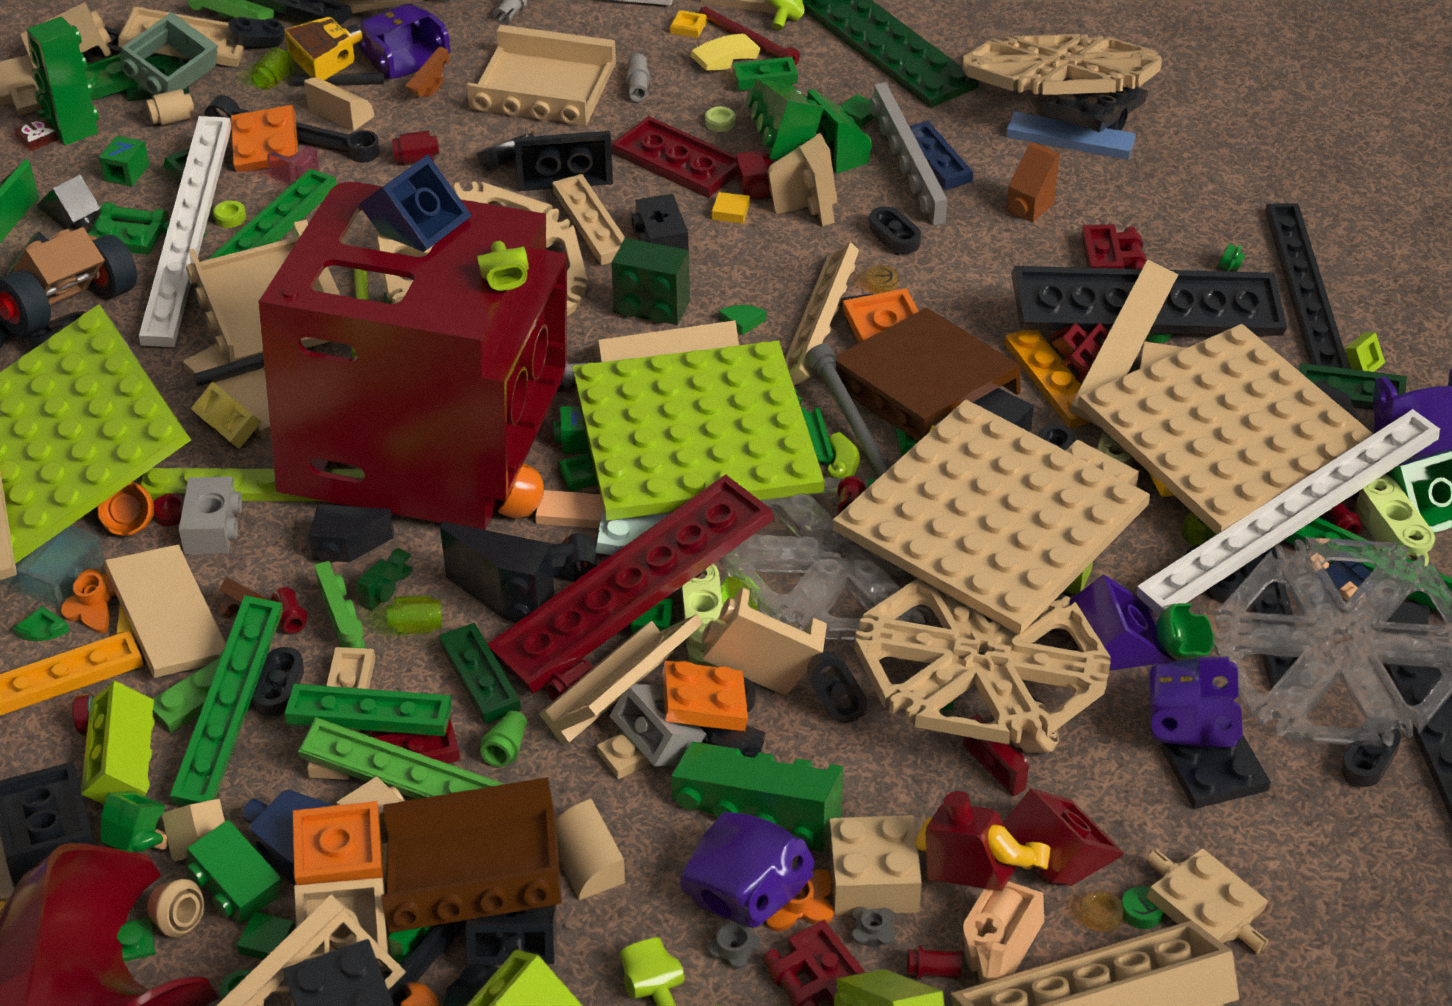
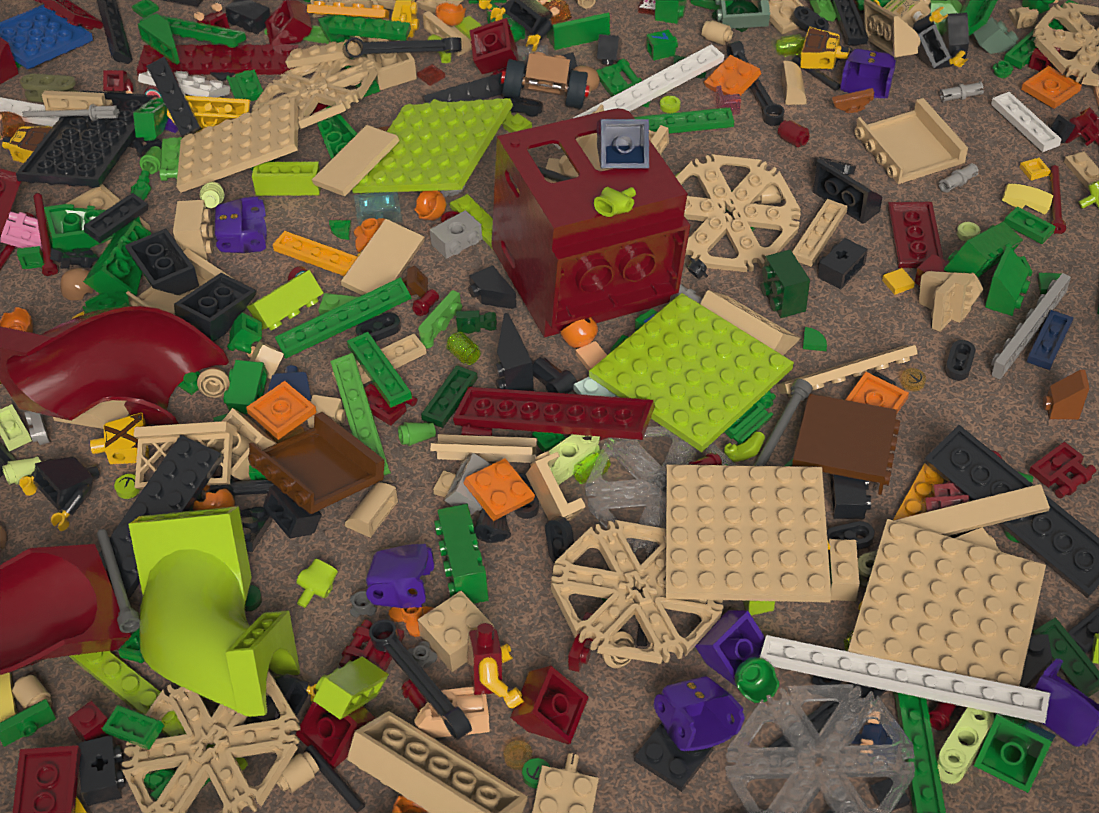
camera: 55 degrees right, 5 degrees up
(1037, 923) = (452, 716): none -> black piece

